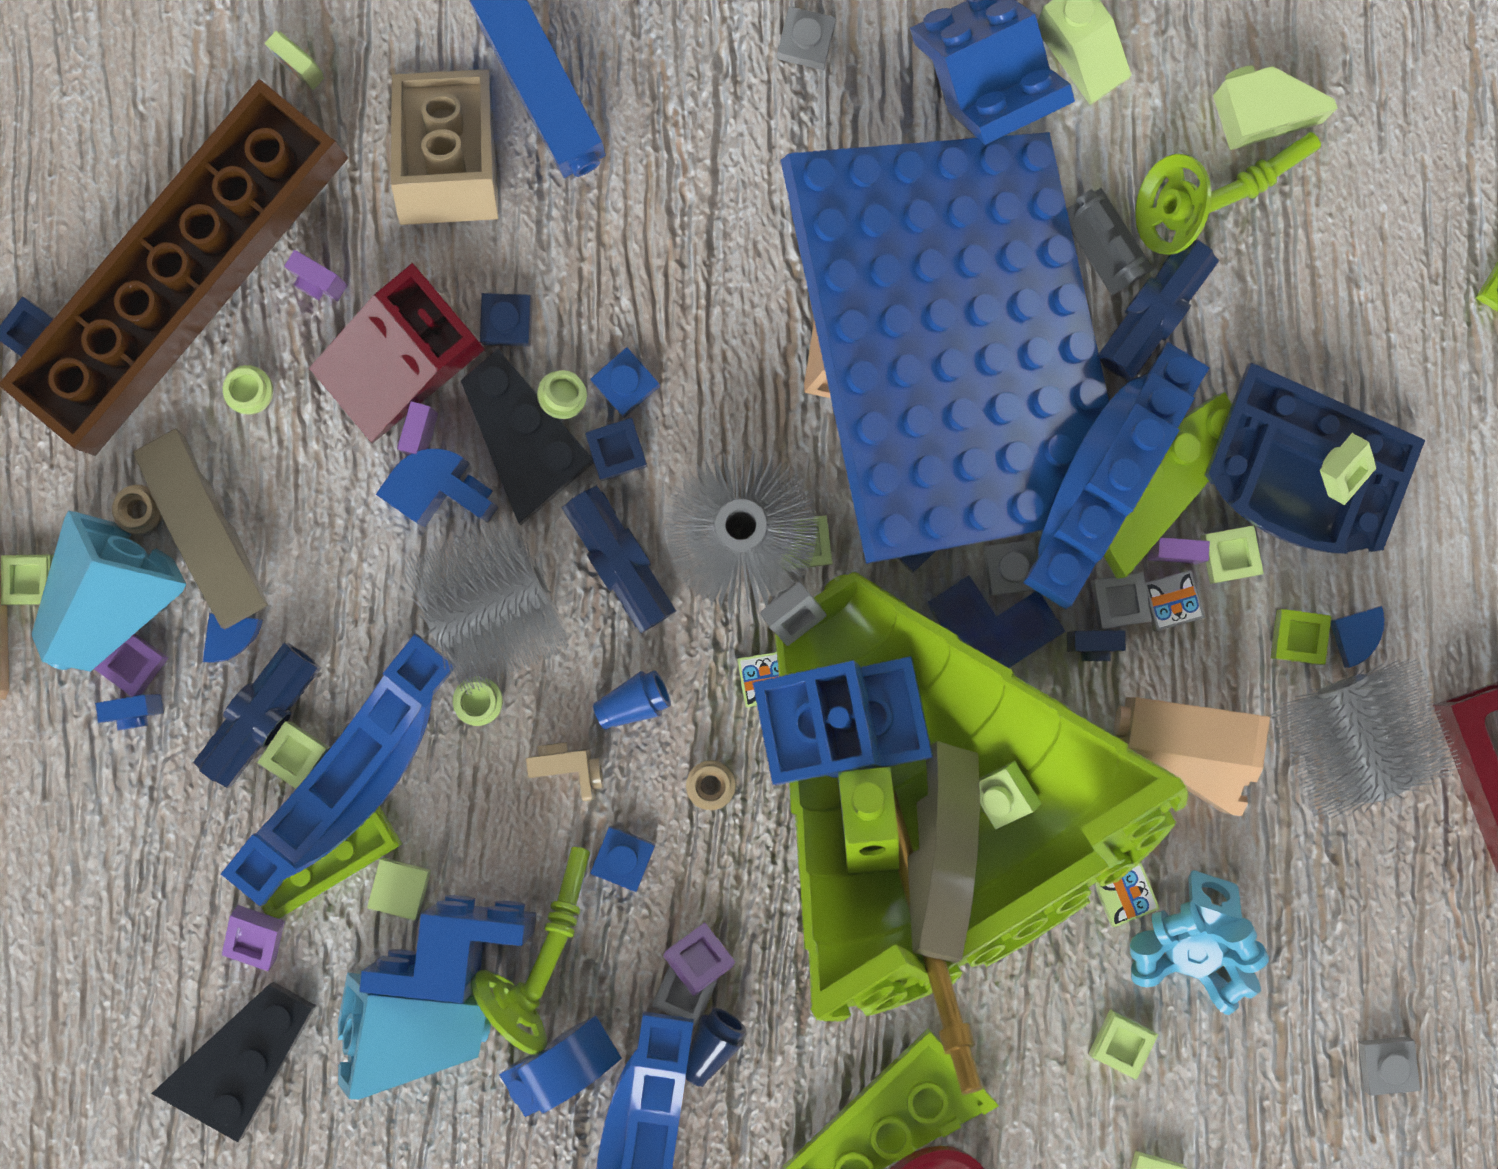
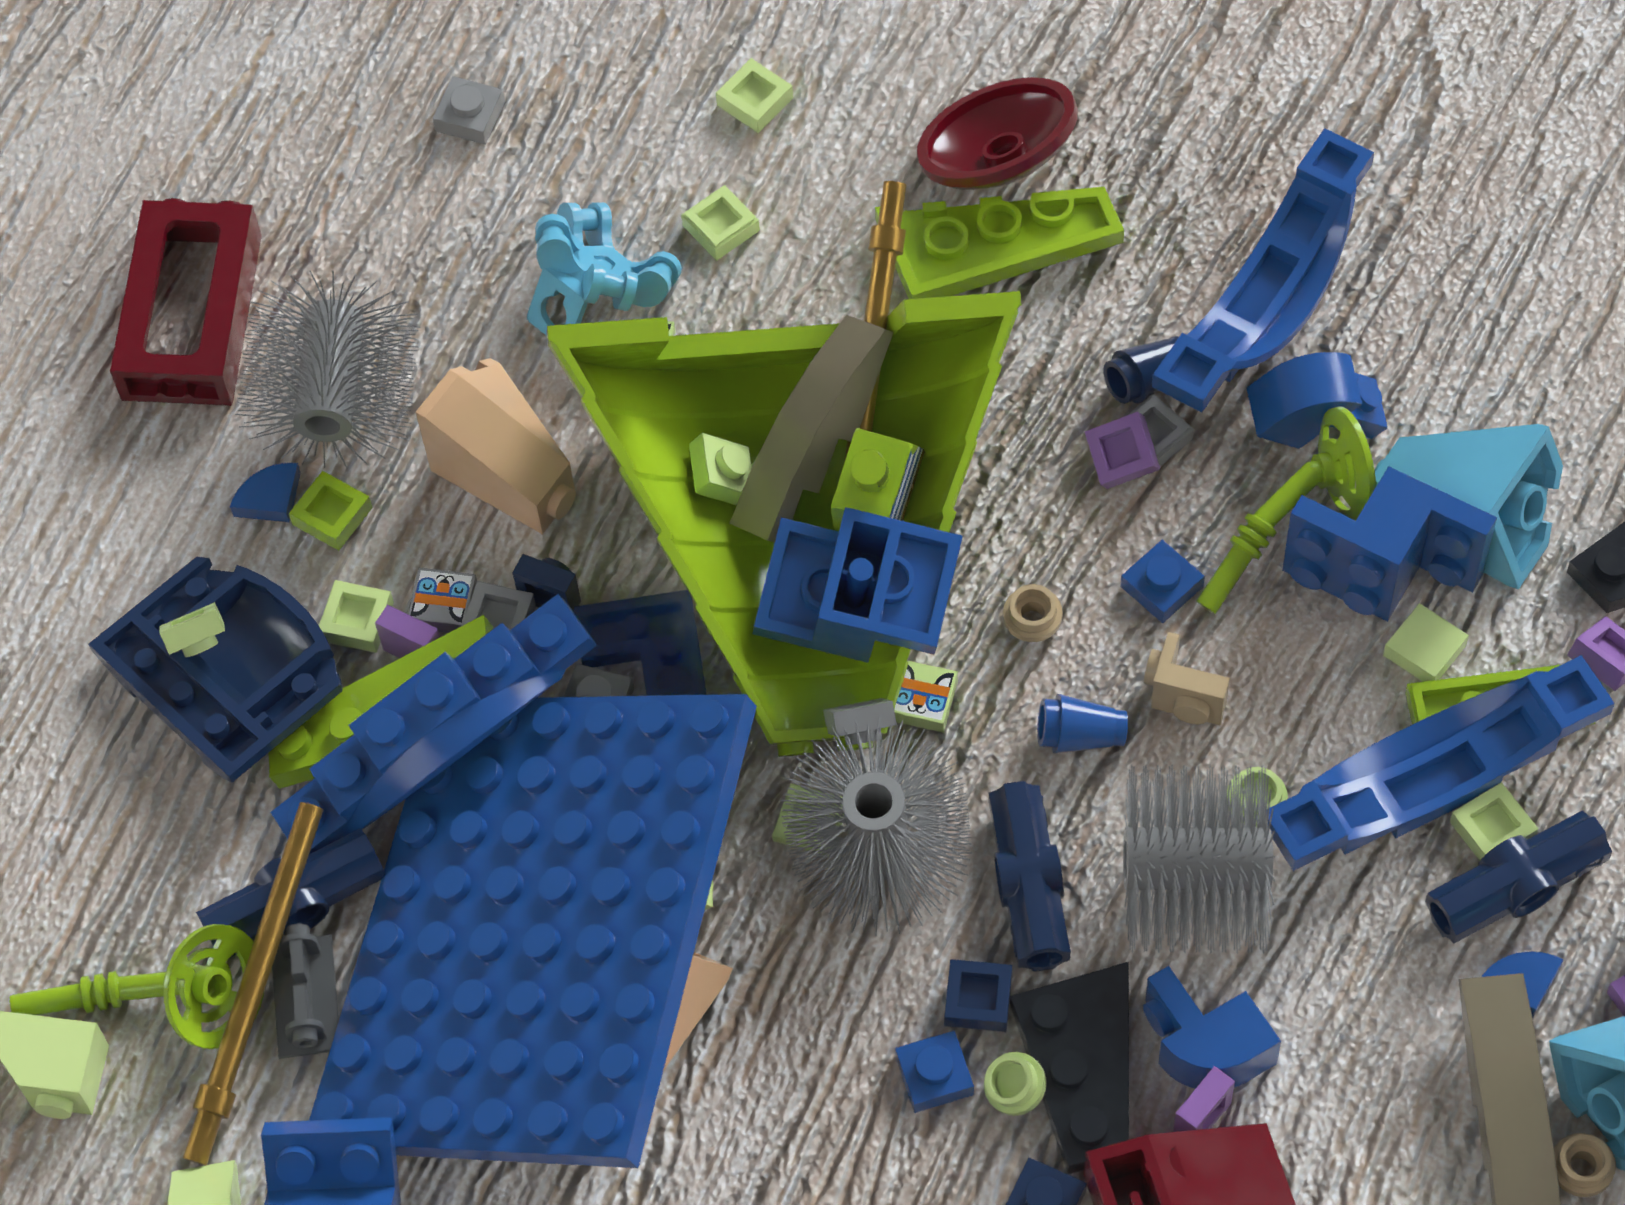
camera: 155 degrees left, 25 degrees down
(1128, 136) = (215, 1098): none -> pearl gold bar

